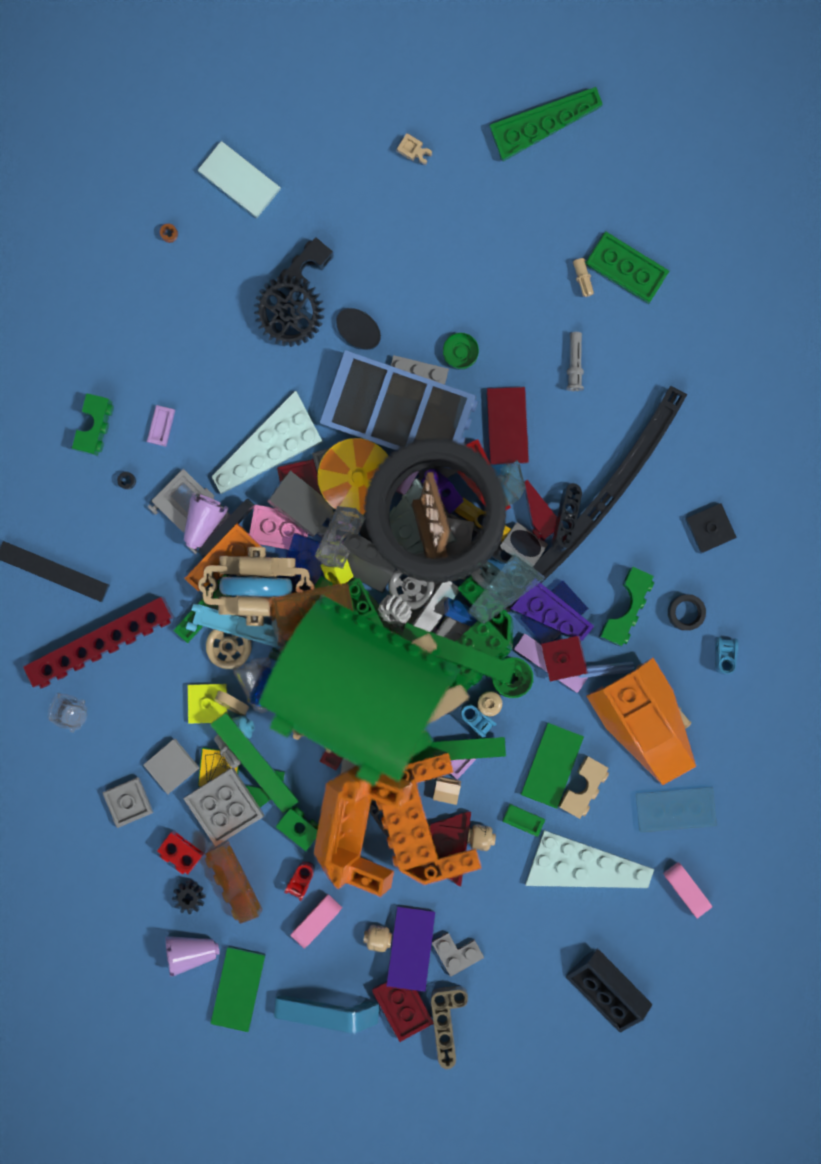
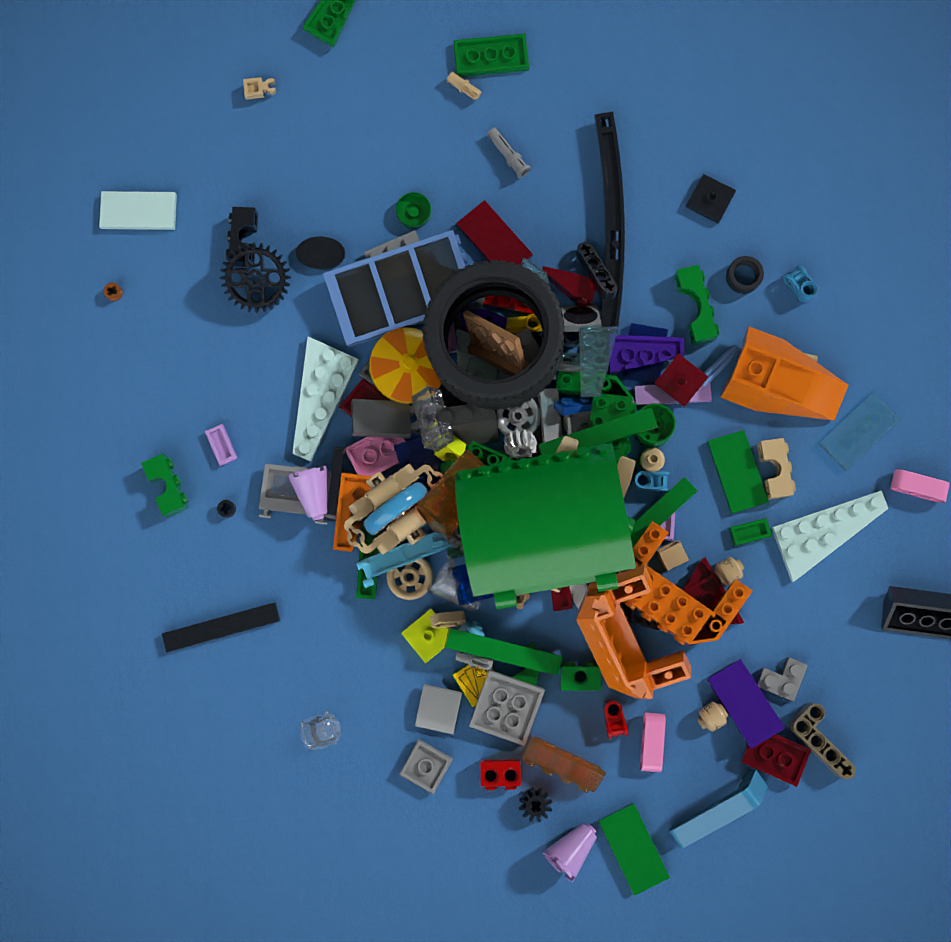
camera: 40 degrees left, 5 degrees down
(36, 669) = (267, 716): dark red brick -> none

